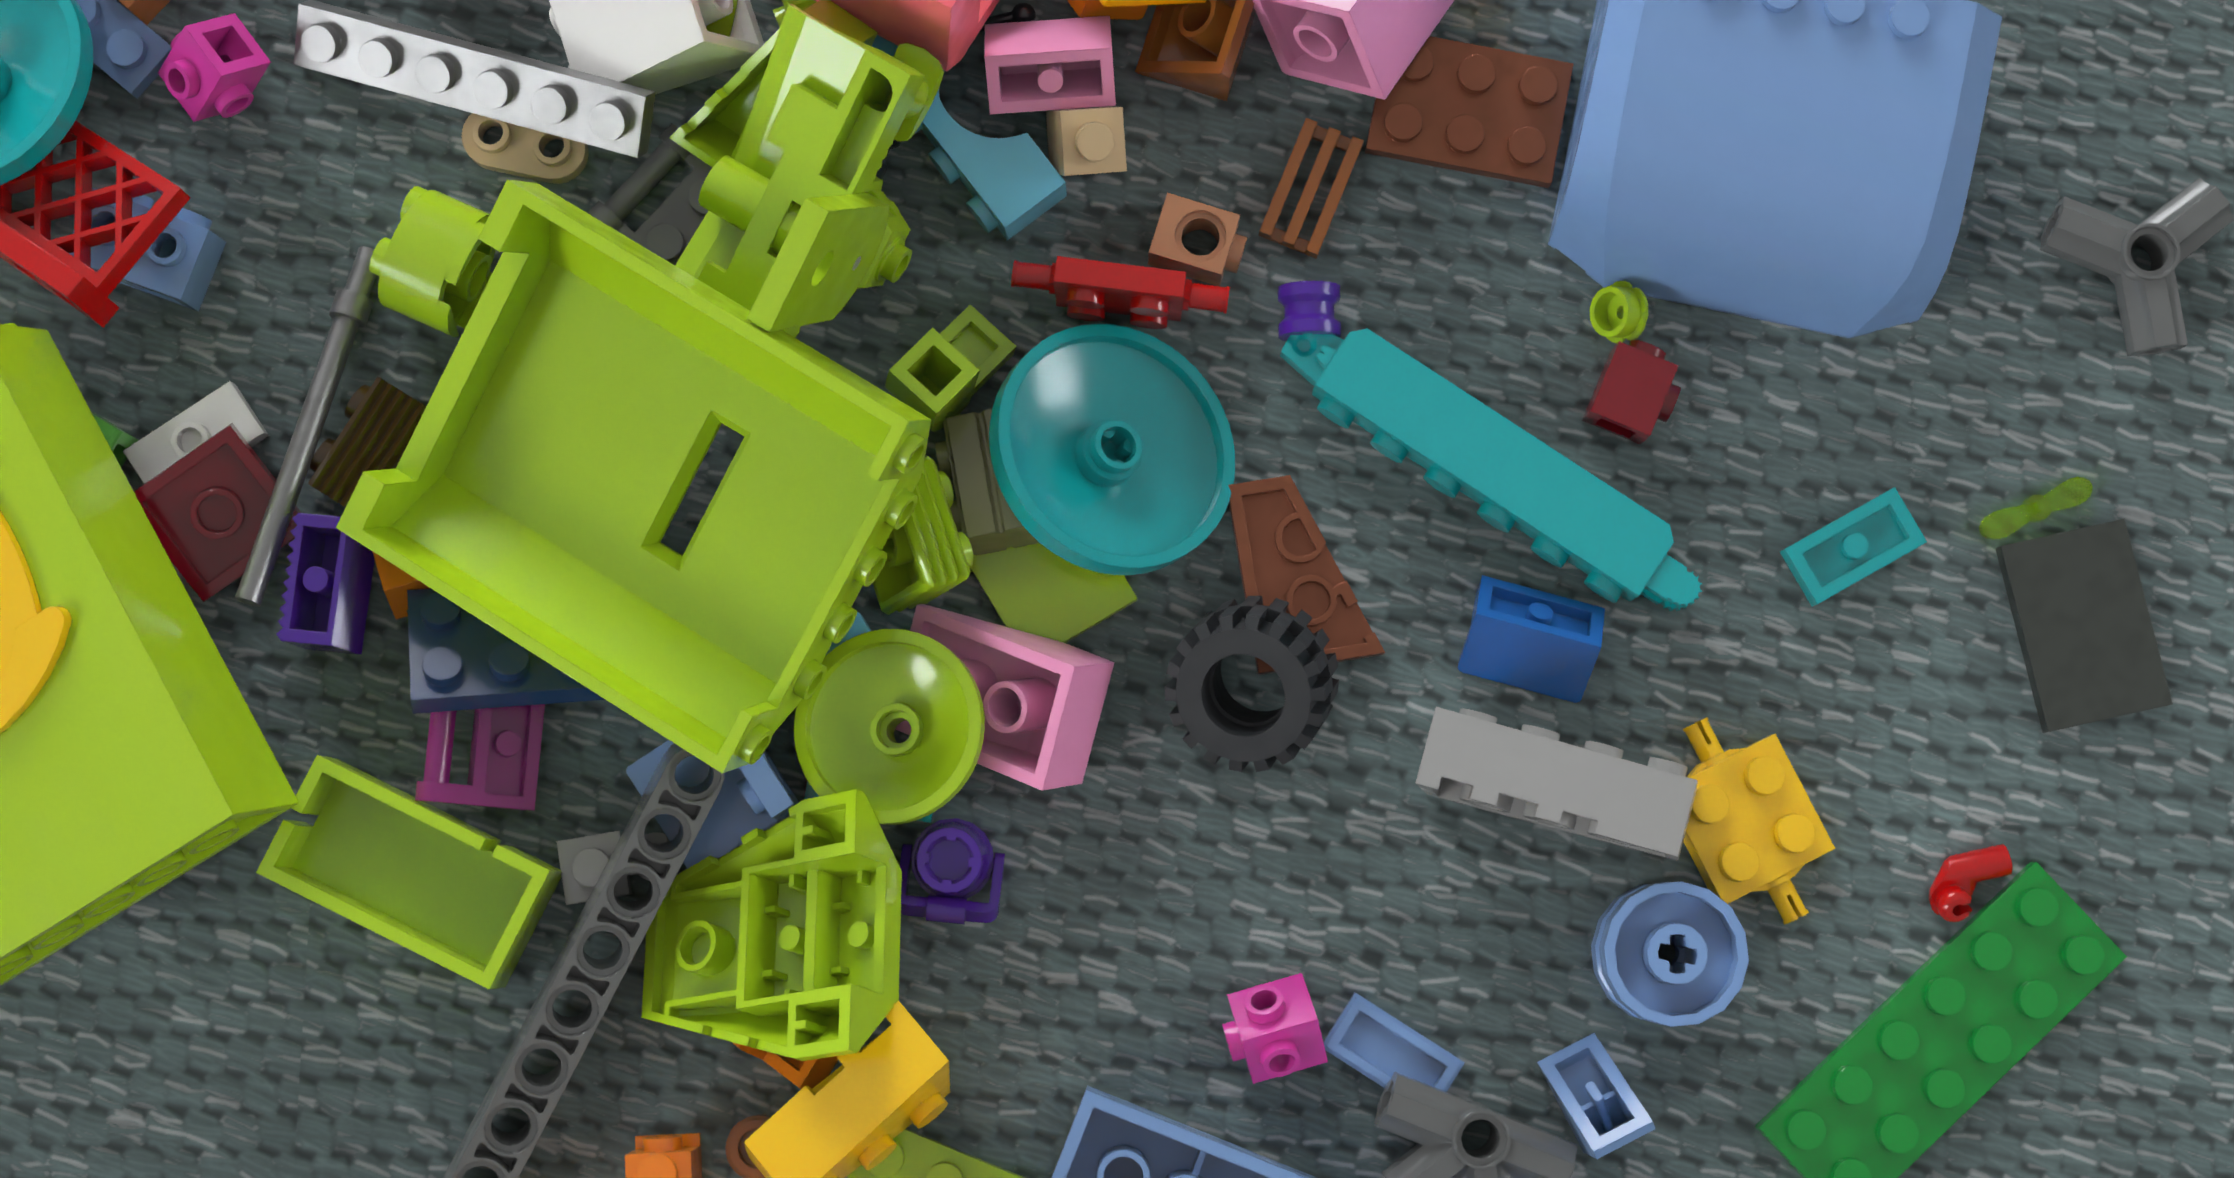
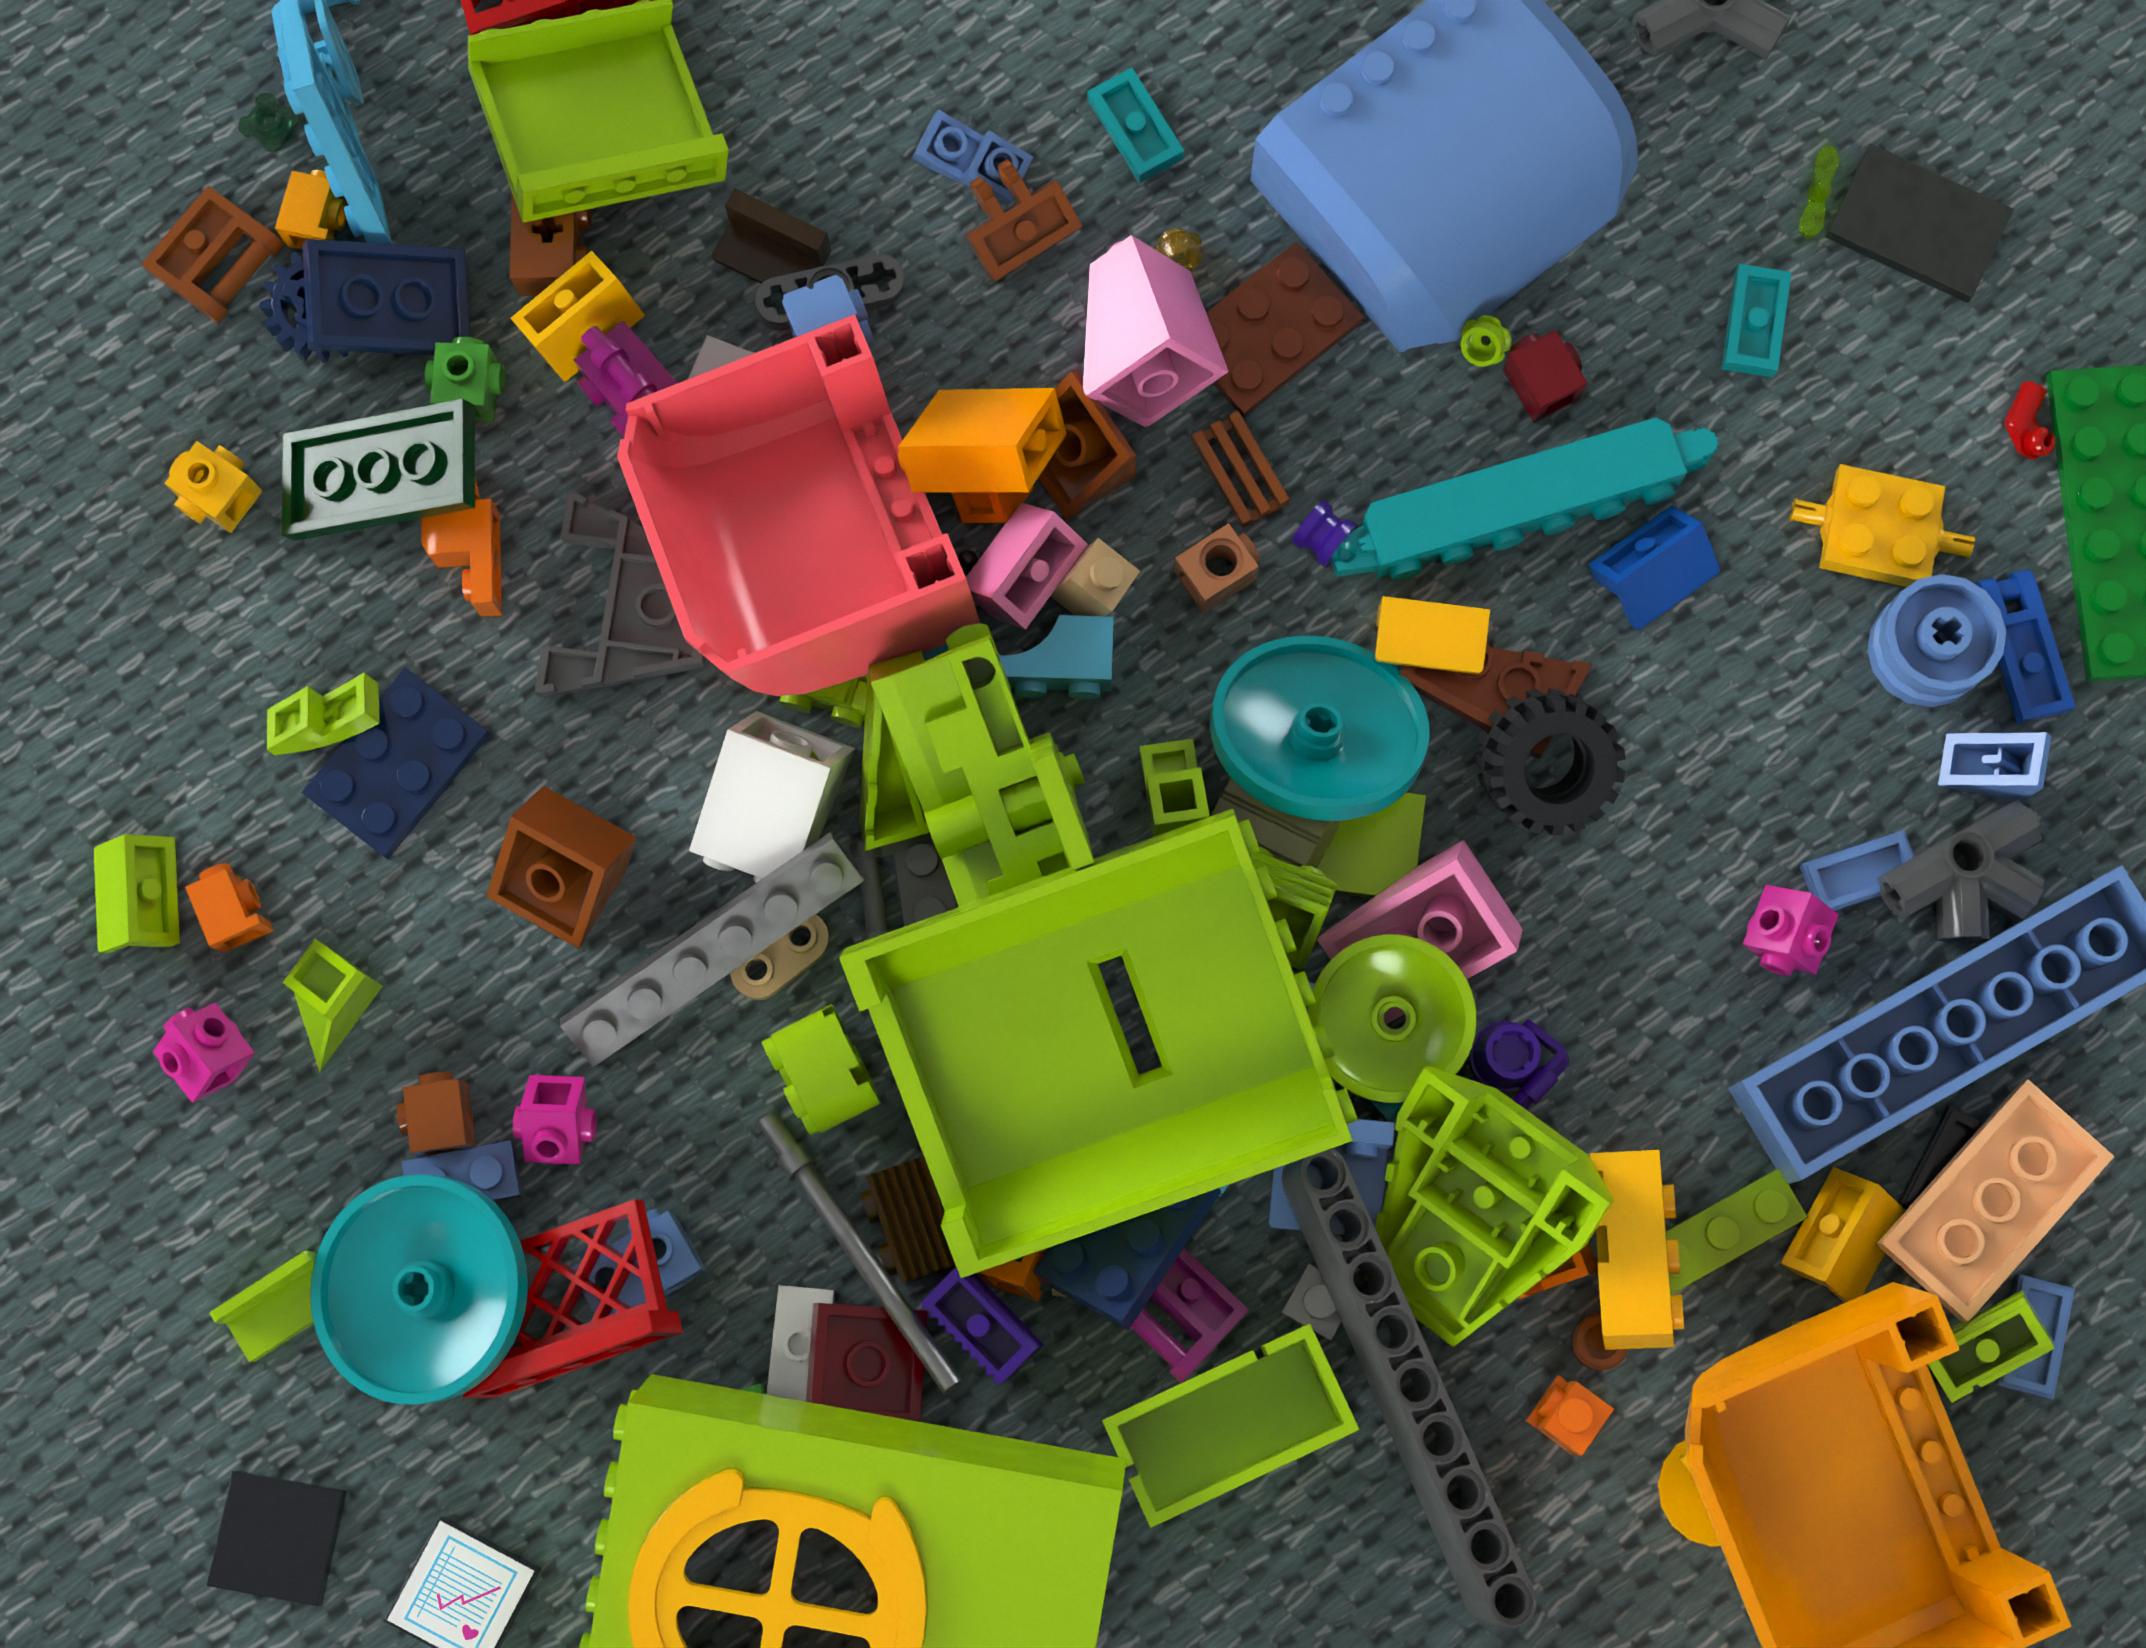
camera: 50 degrees left, 5 degrees down
(1099, 287) = (1228, 628): red plate -> none
(1287, 484) = (1431, 635): none -> yellow panel
(1557, 783) = (1773, 619): light grey wedge -> none
(1736, 1043) = (2030, 656): none -> blue plate

